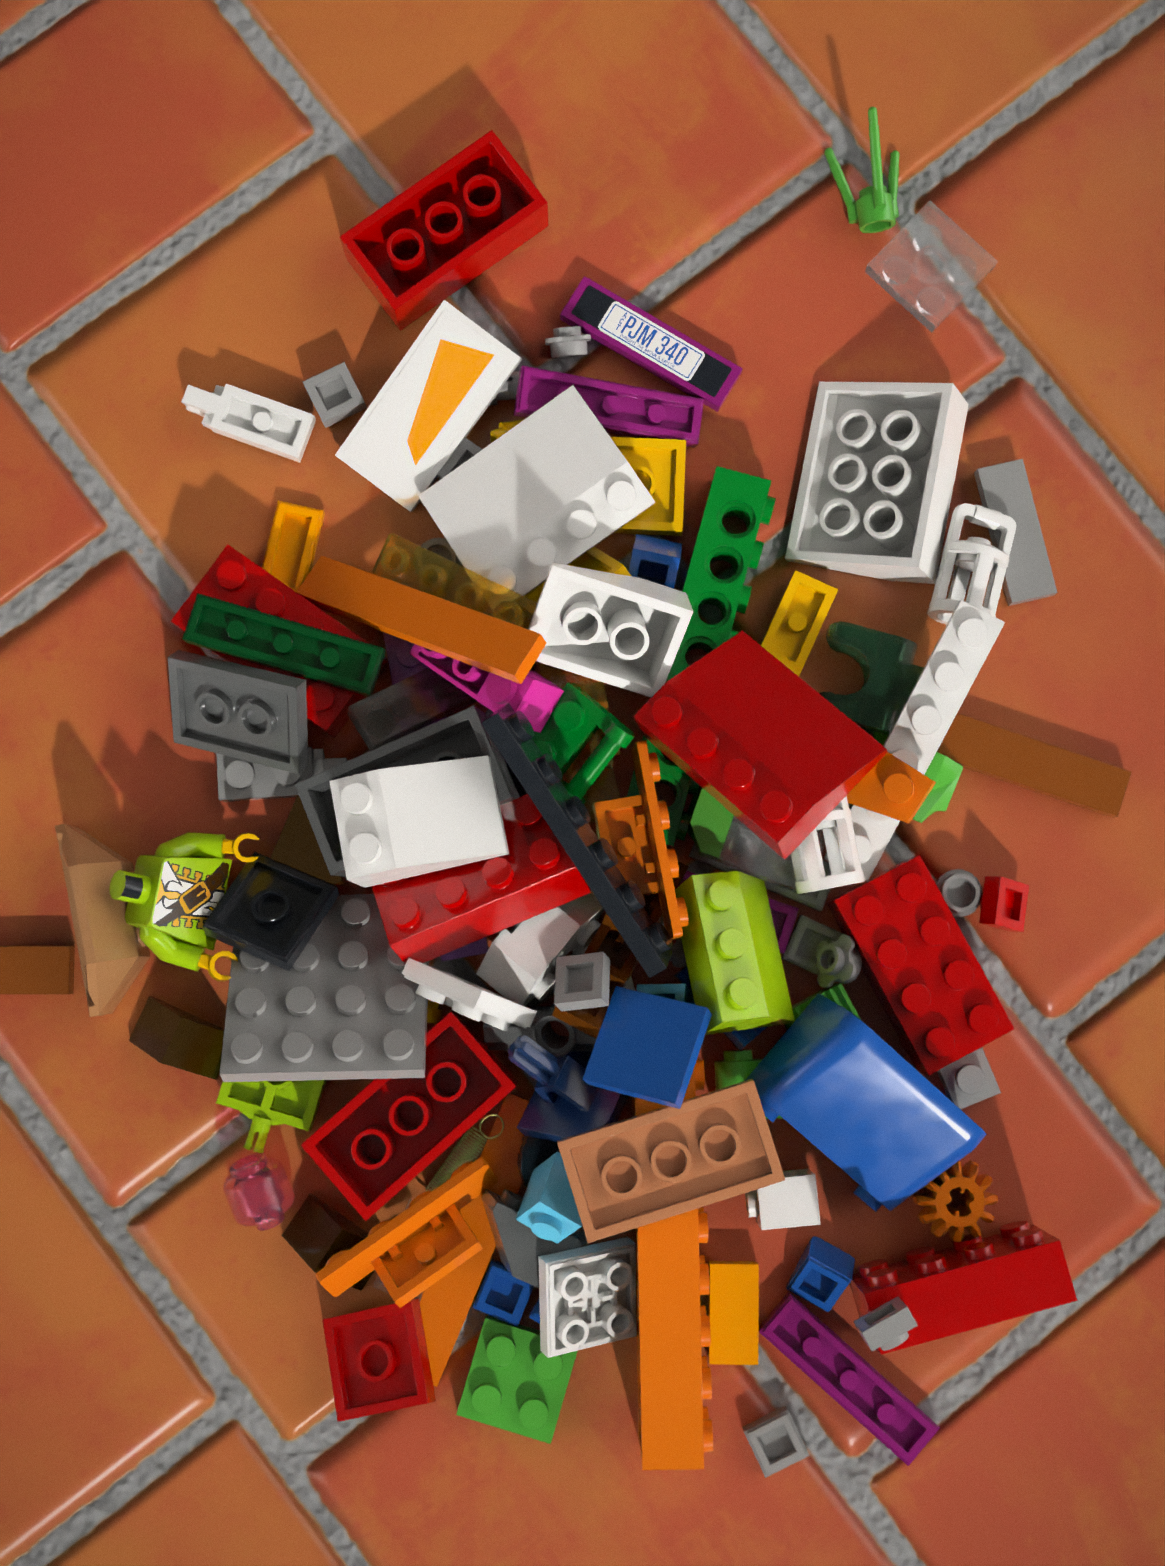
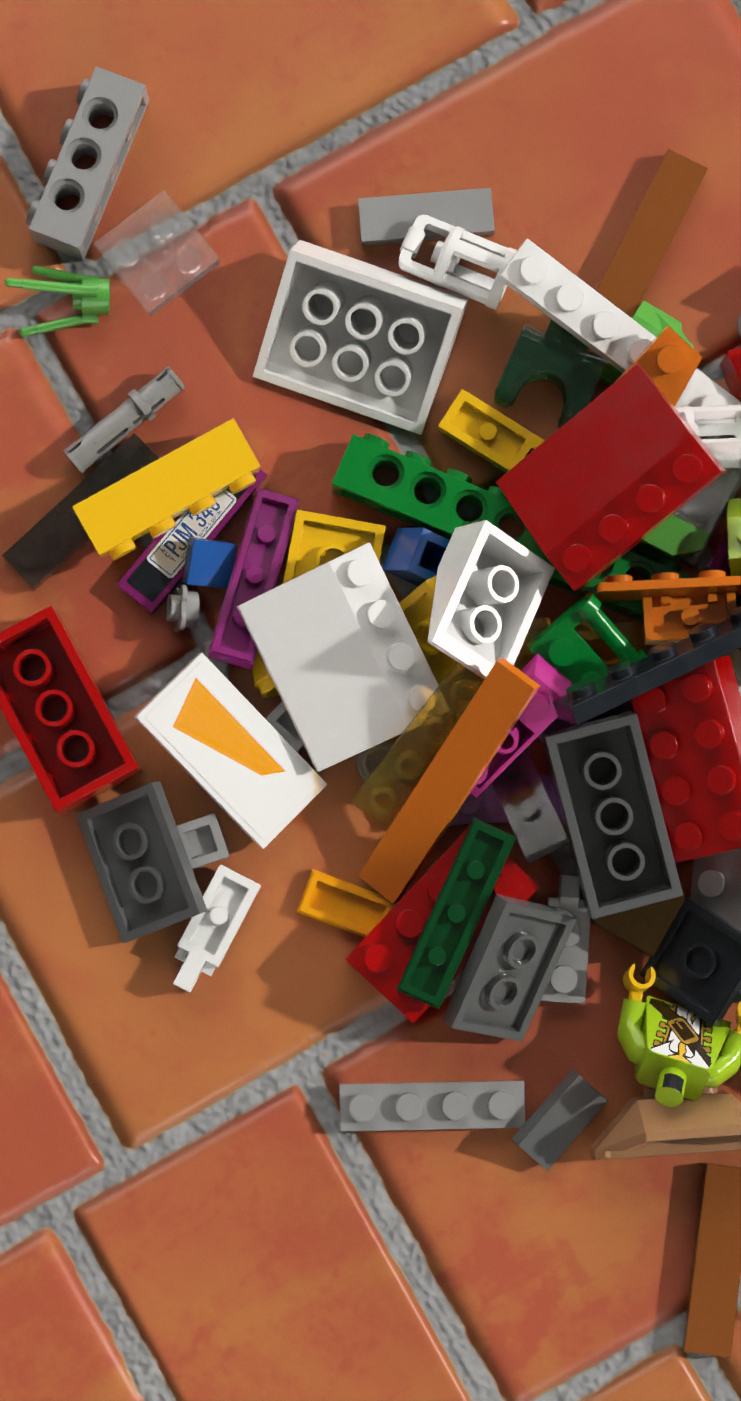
camera: 85 degrees left, 0 degrees up
(97, 789) = (559, 1119): none -> dark grey tile
(100, 661) = (432, 1105): none -> light grey plate
(305, 336) = (141, 862): none -> dark grey plate
(417, 819) = (650, 798): white slope -> none
(619, 360) = (209, 562): none -> blue tile
(654, 236) = (60, 532): none -> clear smoke plate
(684, 302) = (166, 489): none -> yellow brick
(762, 266) = (124, 419): none -> light grey pin
(994, 198) = (74, 229): none -> light grey brick

